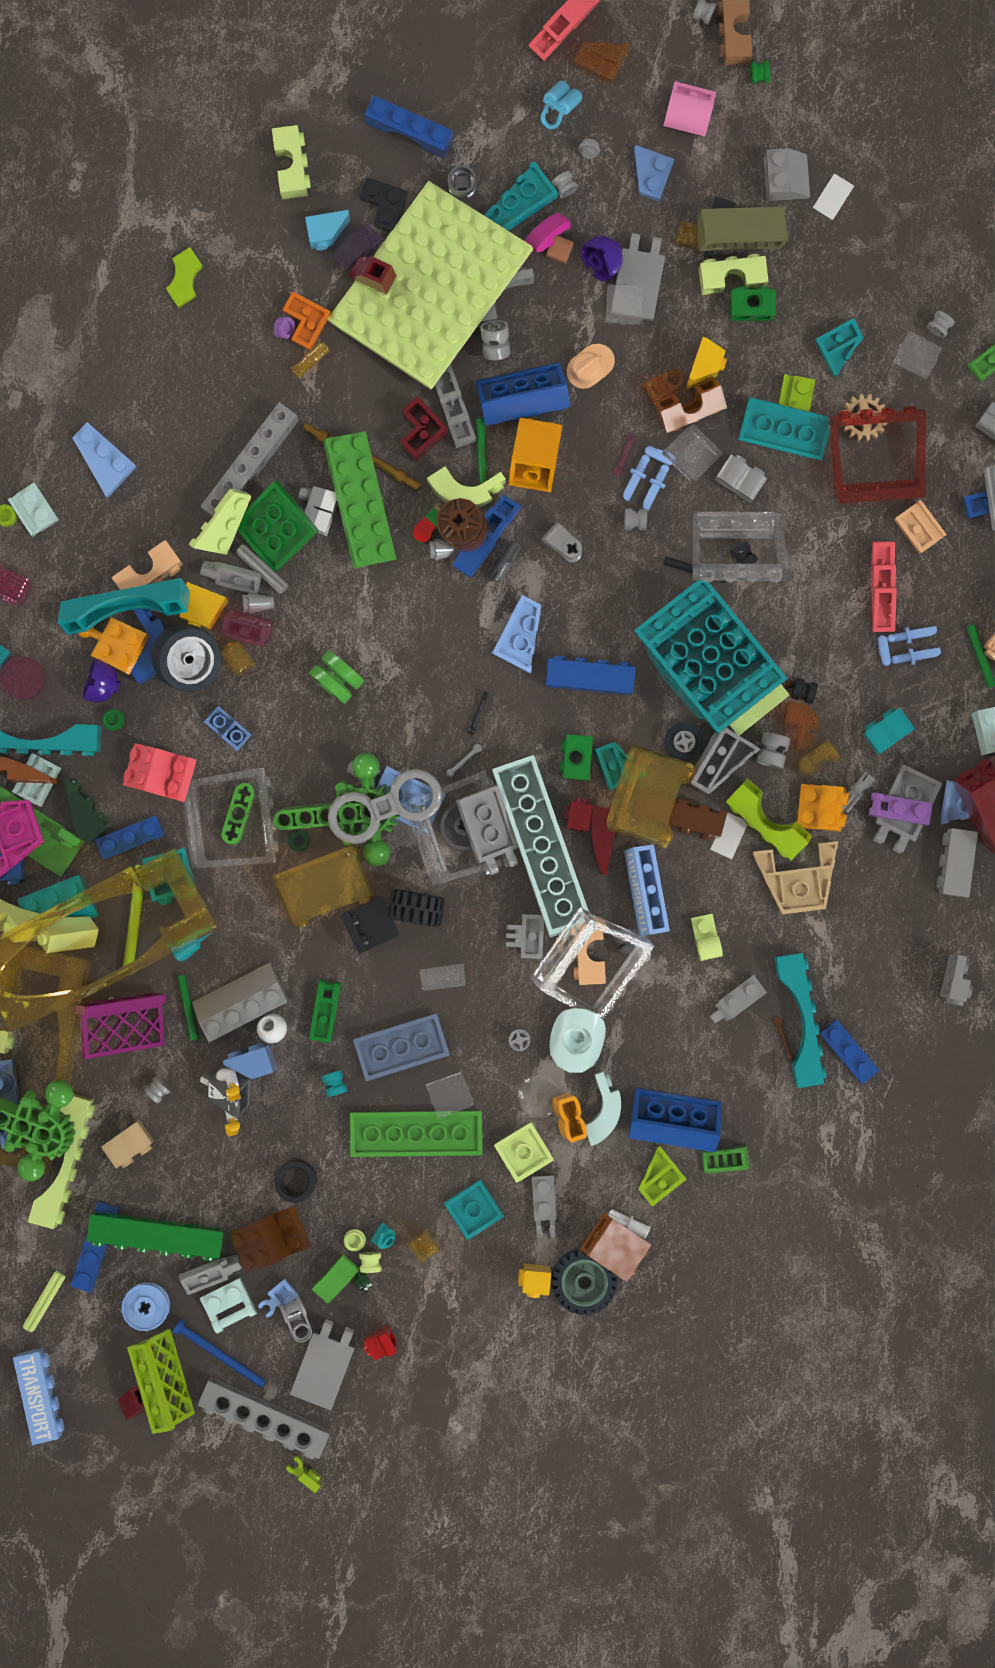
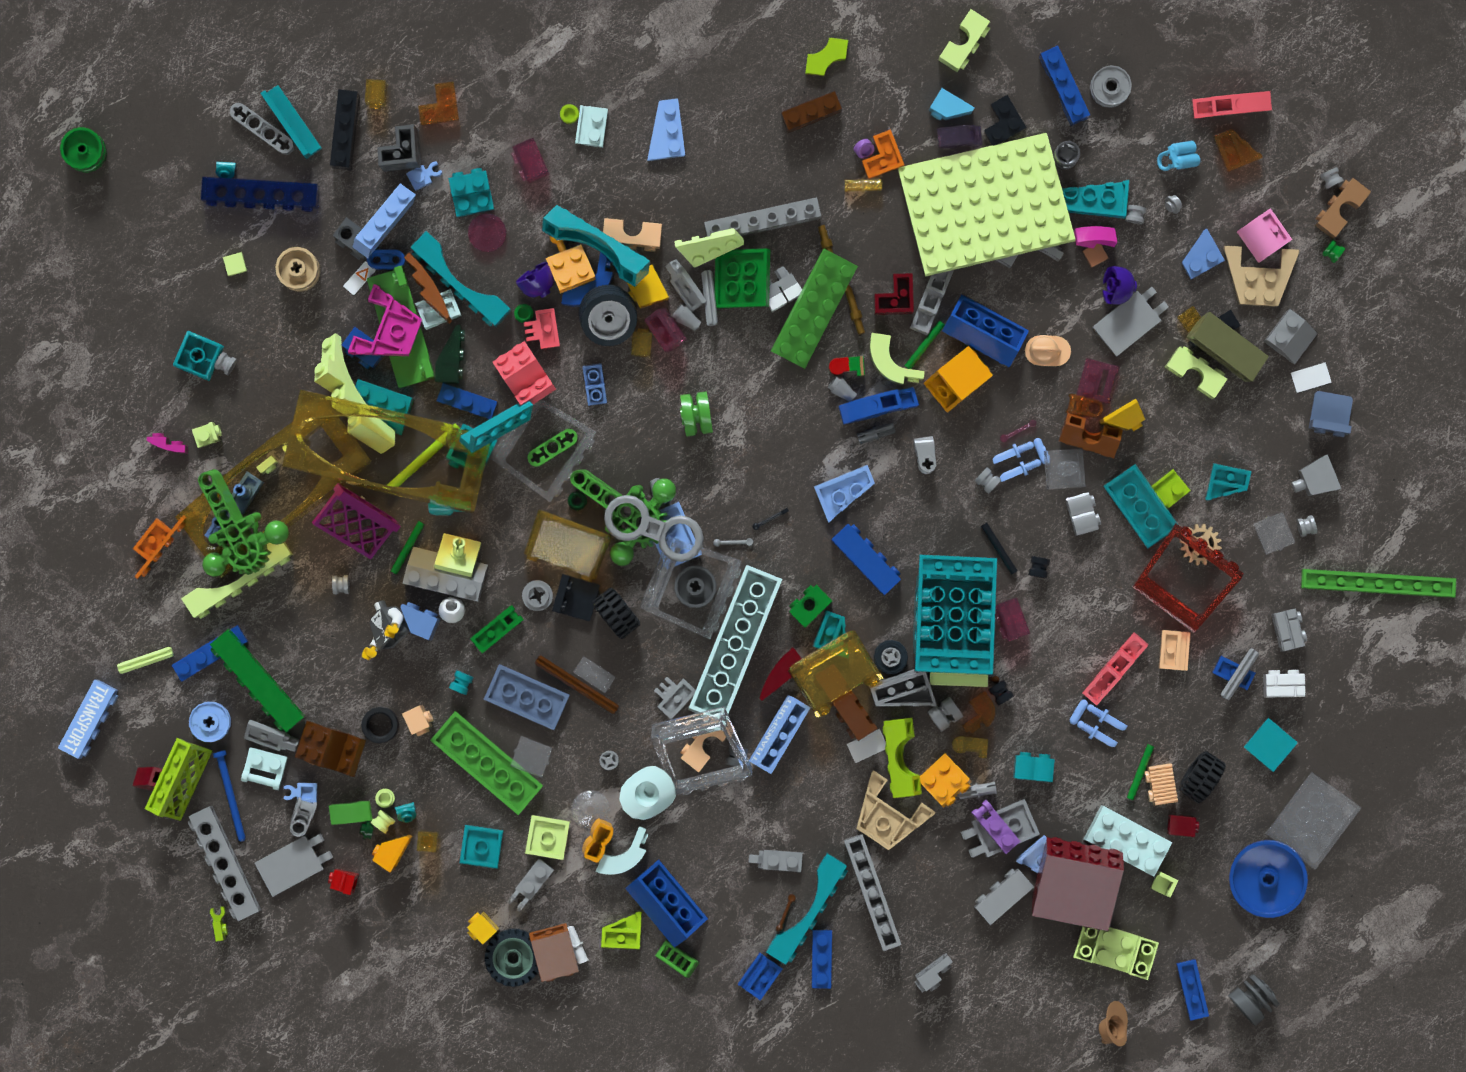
camera: 40 degrees right, 0 degrees up
(128, 1144) = (290, 604): tan brick -> none
(142, 718) = (544, 329): none -> coral hinge
(172, 836) = (496, 426): none -> teal fence
(211, 334) = (811, 112): none -> reddish brown brick
(235, 976) = (457, 555): none -> yellowish green tile
(325, 955) = (534, 604): none -> light grey gear
(325, 1148) = (418, 720): none -> light nougat brick
(373, 273) = (953, 165): dark red slope -> none
(399, 1284) = (390, 852): none -> light orange slope
(435, 999) = (576, 684): none -> reddish brown axle
(452, 81) = (1102, 94): none -> light grey wheel
(471, 532) = (865, 396): reddish brown wheel -> none
(488, 828) = (710, 602): light grey tile -> none
(495, 340) = (997, 279): light grey wheel -> none
(578, 815) = (777, 645): dark red brick -> none
(624, 304) = (1105, 329): clear piece -> none
(648, 357) = (1091, 379): none -> clear pink plate
(706, 937) = (792, 800): yellowish green plate -> none
(721, 155) = (1259, 285): none -> tan wing
(740, 526) = (1053, 544): clear windscreen -> none
(743, 312) = (1180, 401): green brick -> none
(760, 620) = (1011, 620): none -> clear pink brick
(809, 1112) = (760, 976): none -> blue plate
(844, 957) = (872, 892): none -> light grey brick
(878, 211) = (1331, 414): none -> sand blue bracket
(913, 275) = (1317, 478): none -> light grey torso

